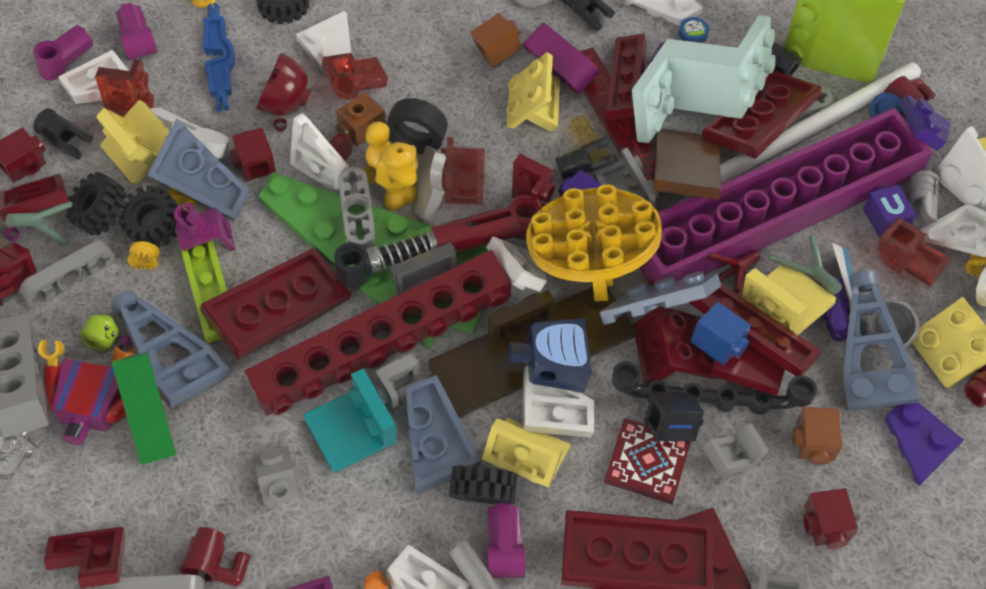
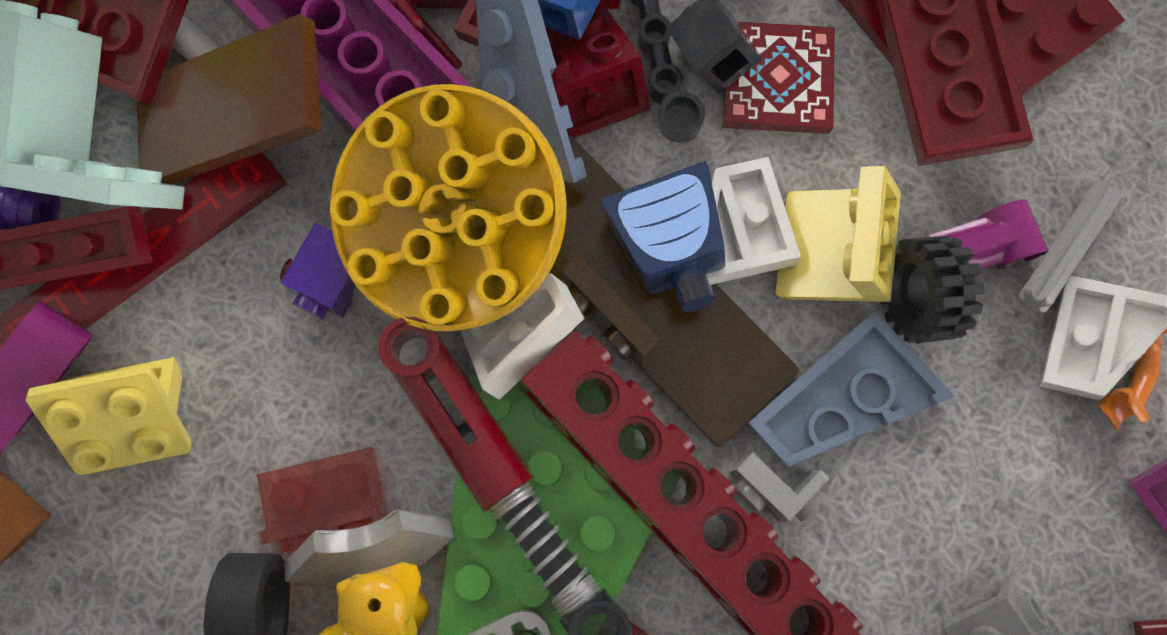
camera: 105 degrees left, 20 degrees up
(352, 425) = (878, 536): teal bracket -> none
(423, 267) = (574, 494): dark grey tile -> none
(532, 180) = (336, 350): dark red bracket -> none
(580, 159) = (255, 296): black hinge -> none
(586, 134) = (194, 294): clear yellow axle -> none
(628, 176) = (284, 203): light grey bracket -> none

